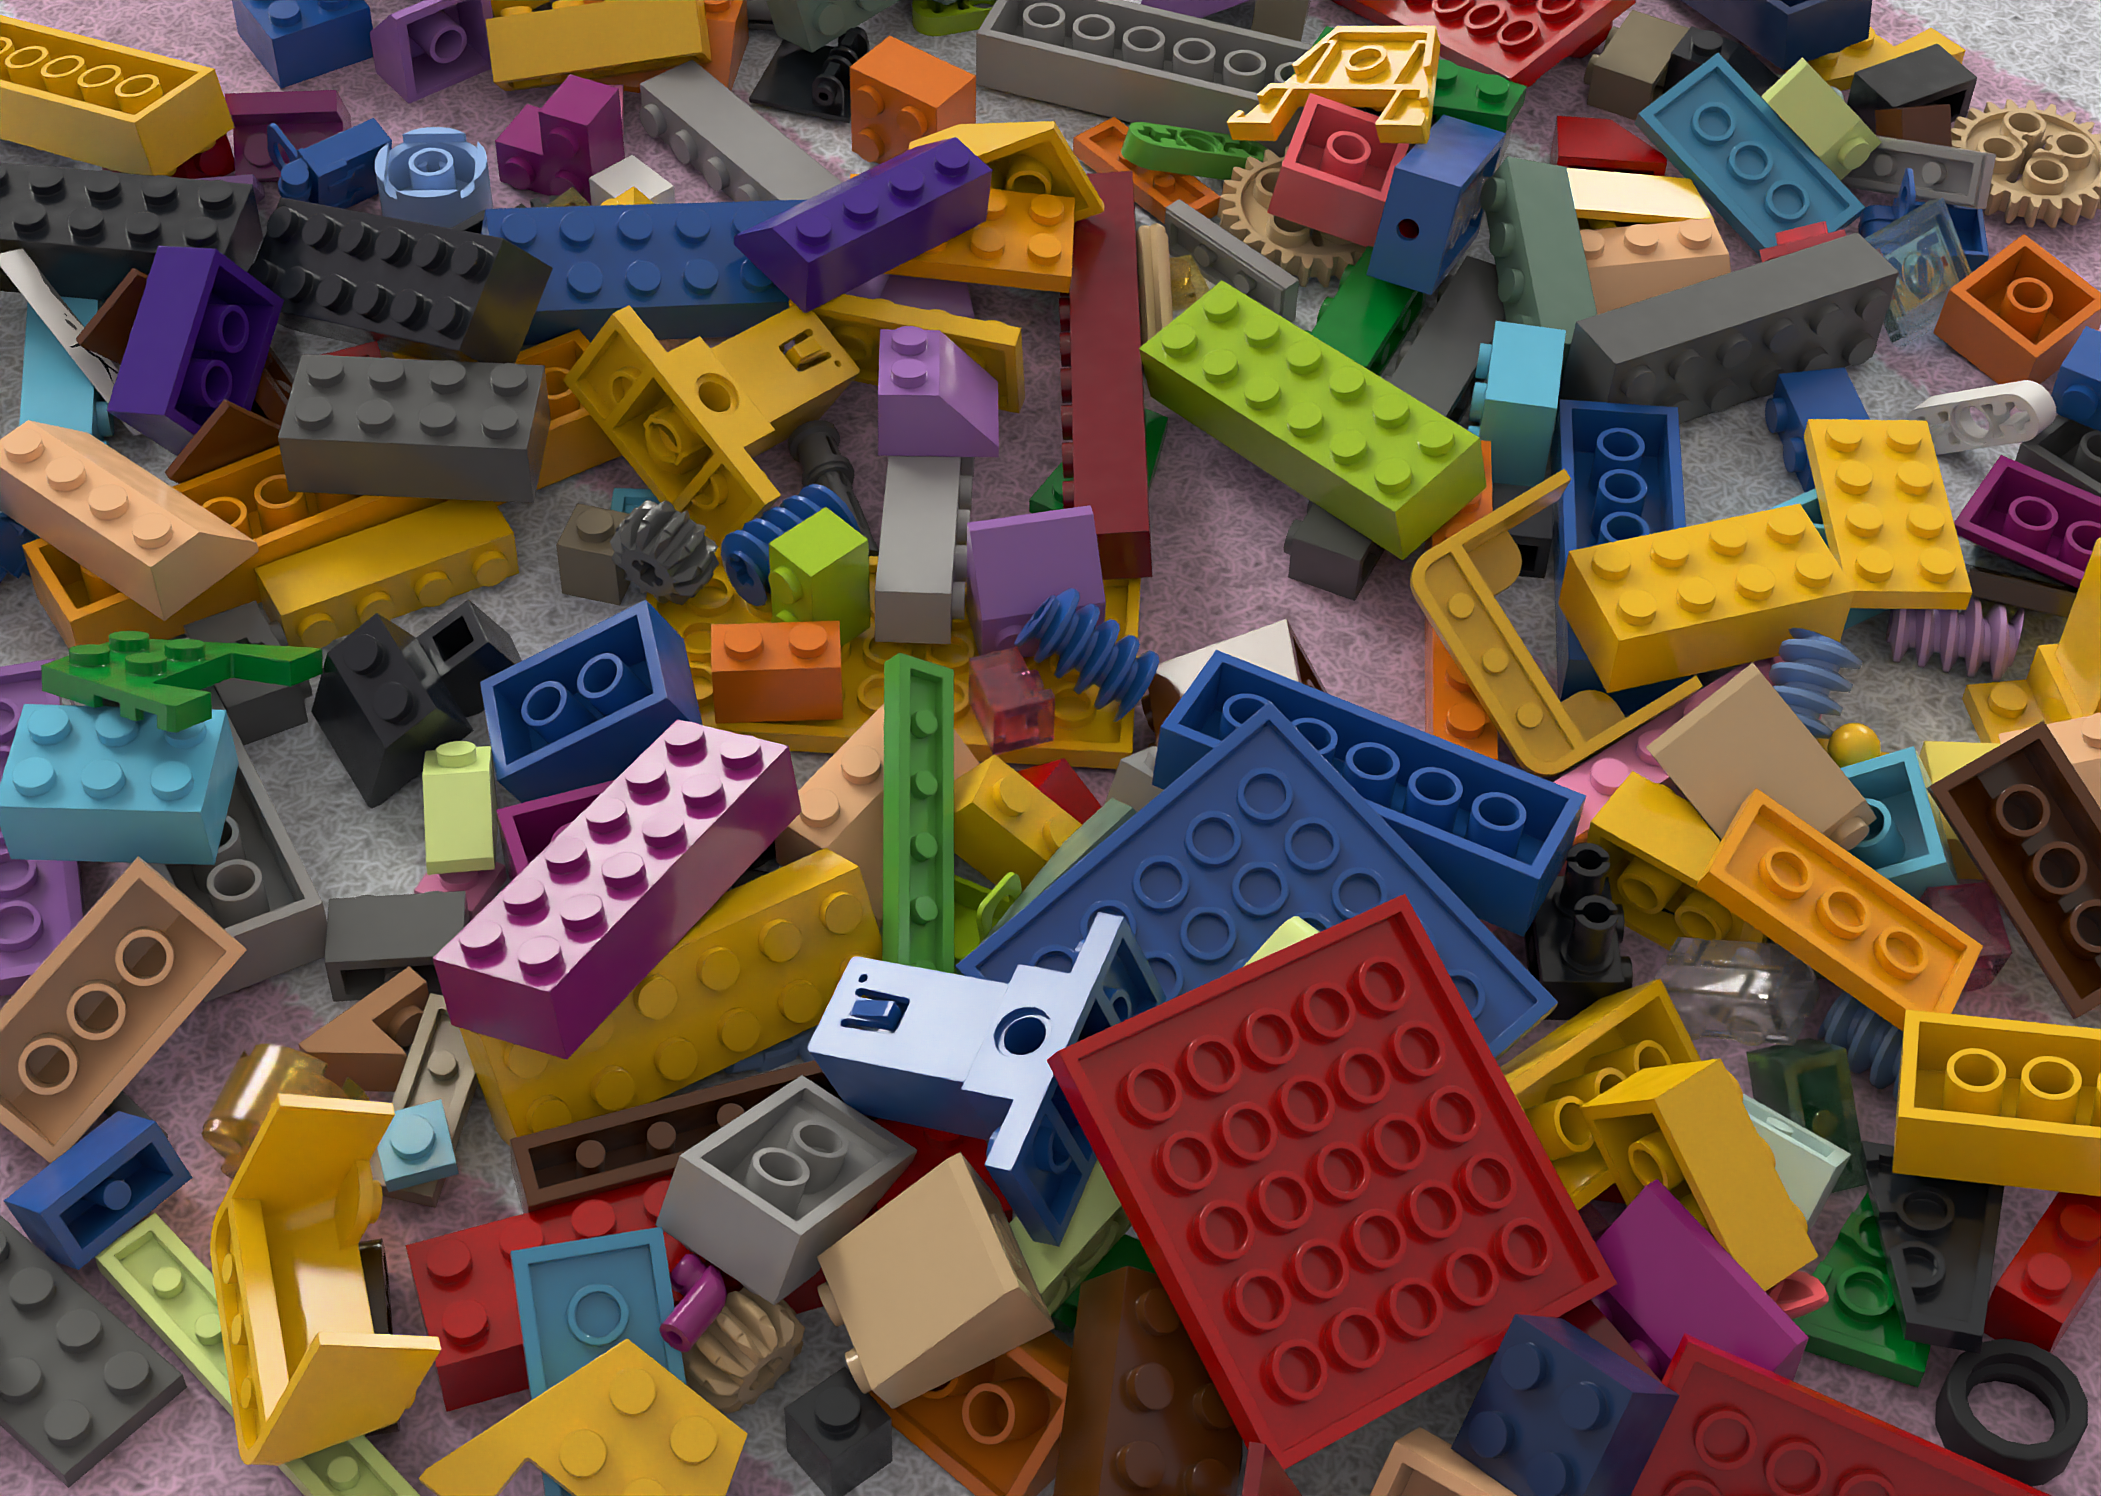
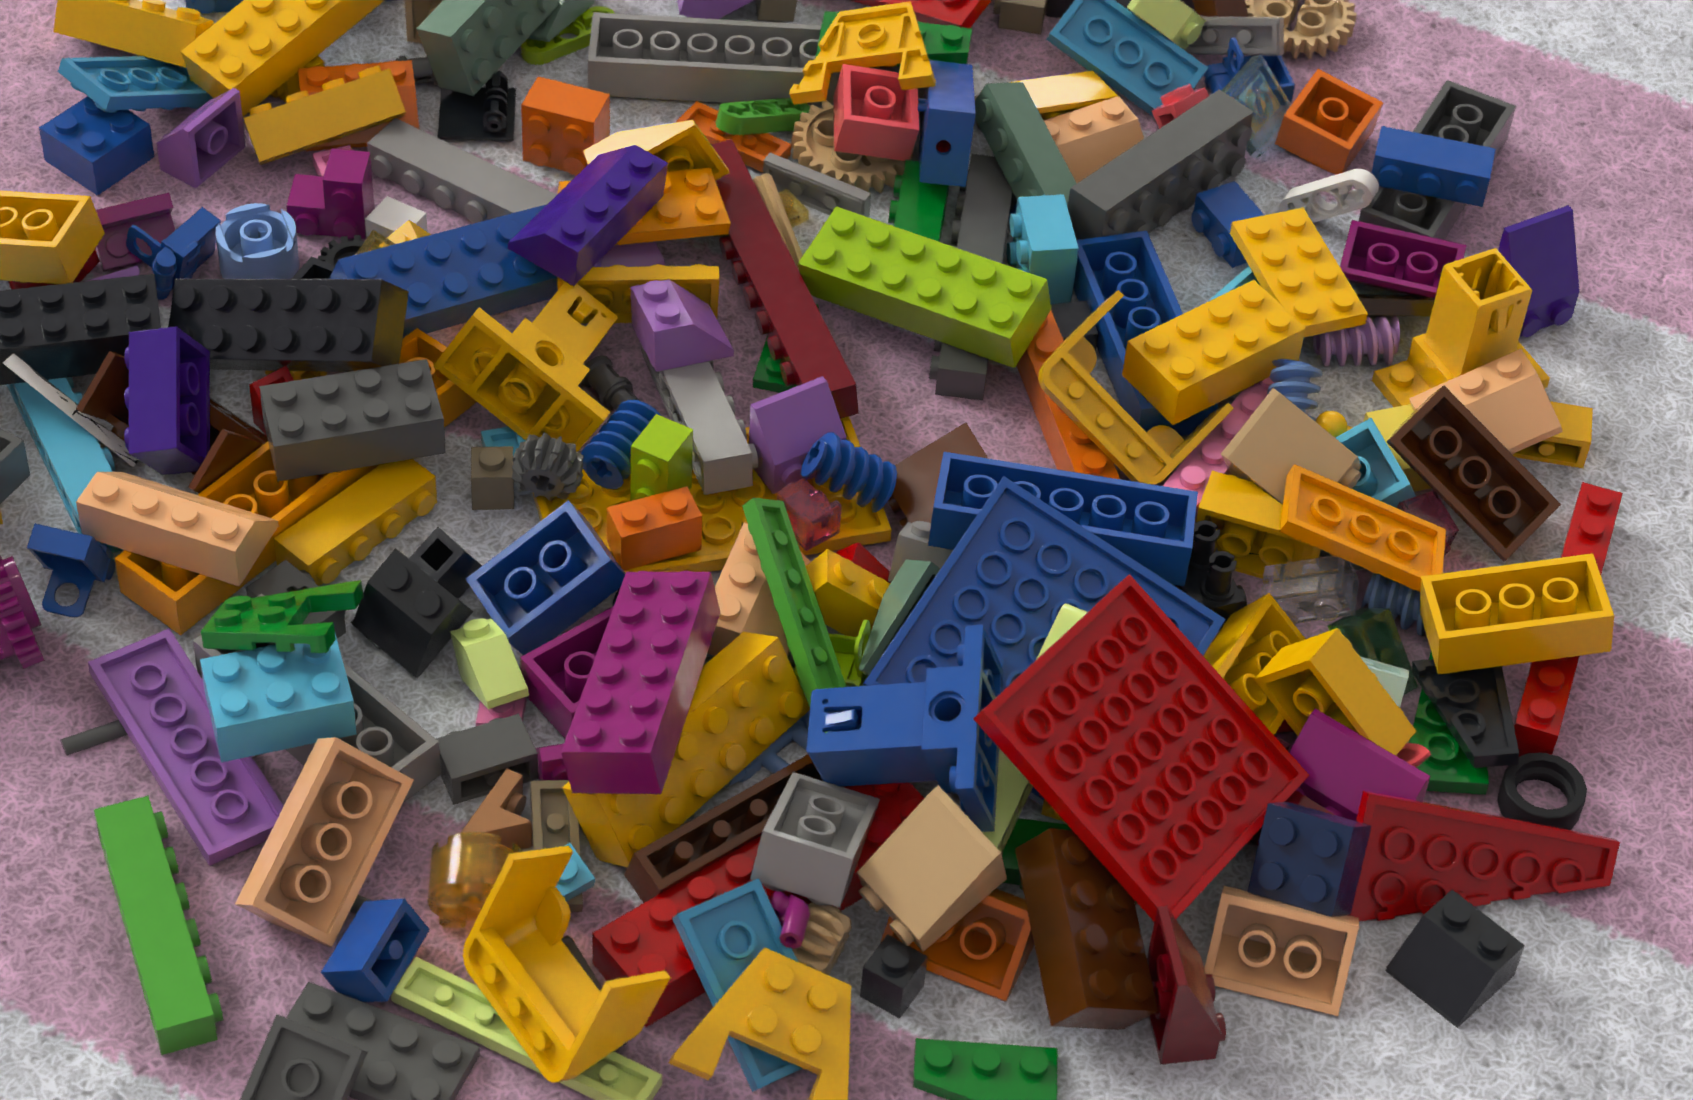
camera: 20 degrees left, 0 degrees up
(1603, 147) = (1026, 60): red slope -> none

